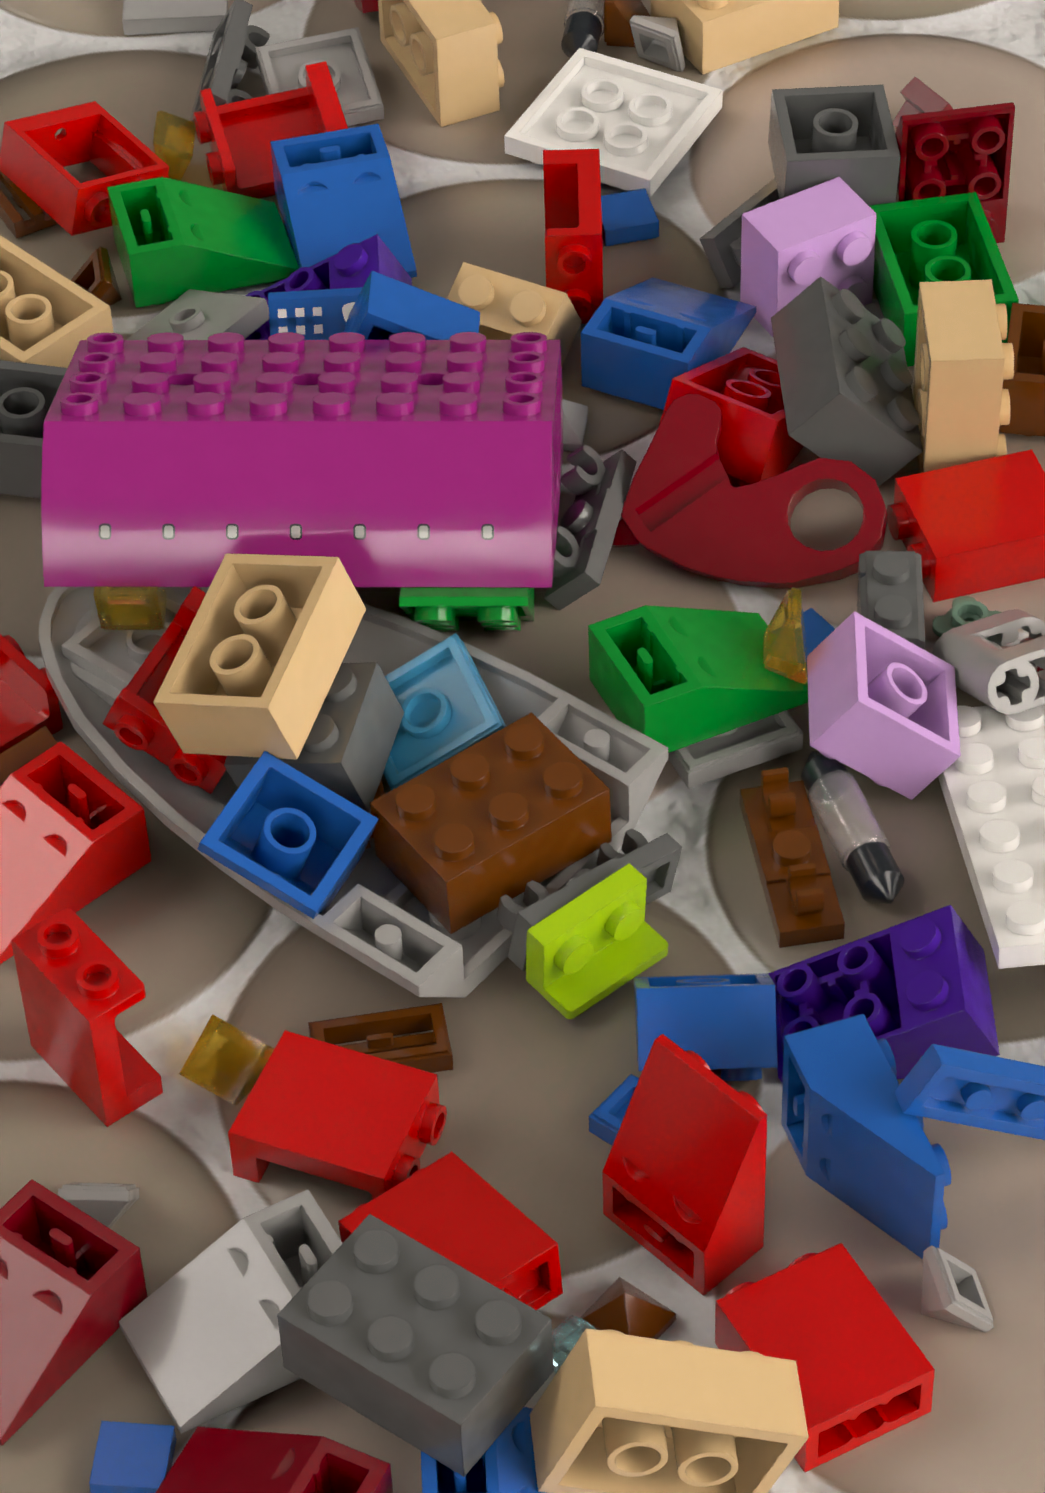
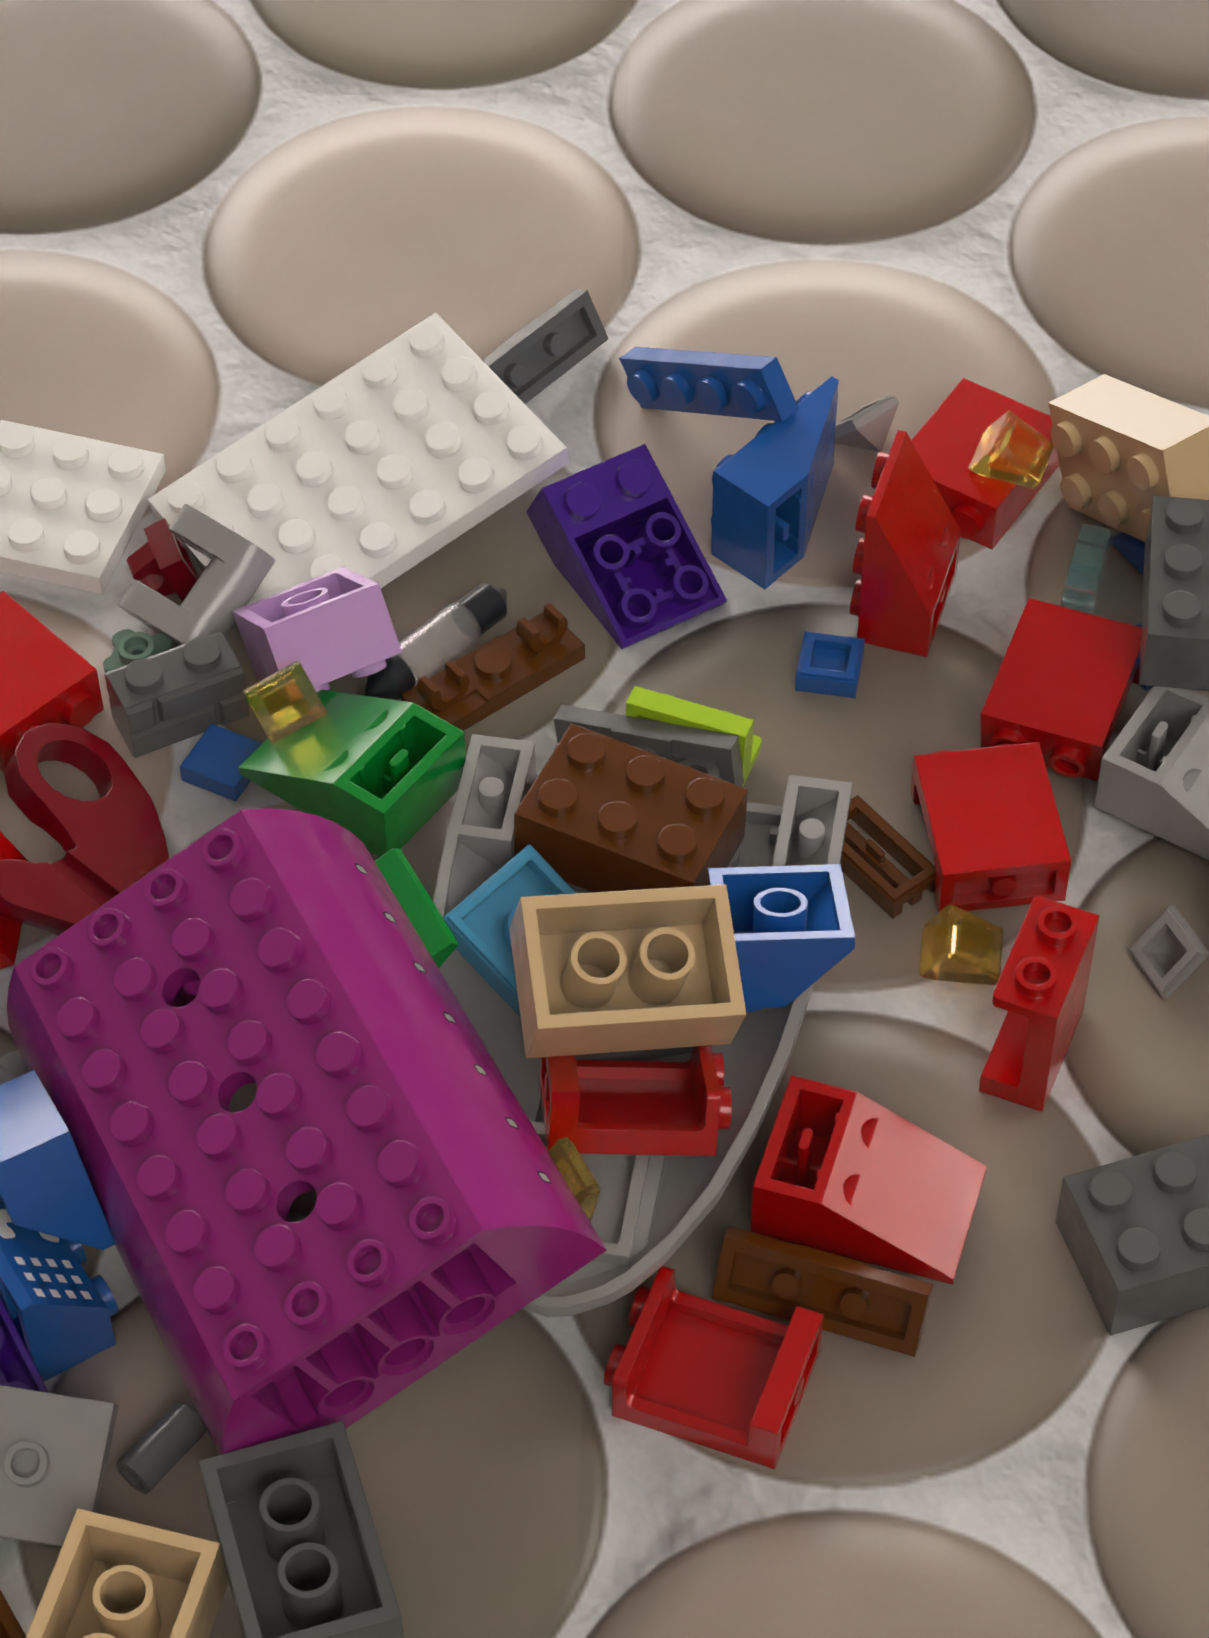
camera: 120 degrees left, 5 degrees up
(629, 1311) = (1010, 593): reddish brown slope -> none
(717, 1016) = (715, 641): blue slope -> none
(778, 1331) = (1012, 452): none -> clear yellow slope

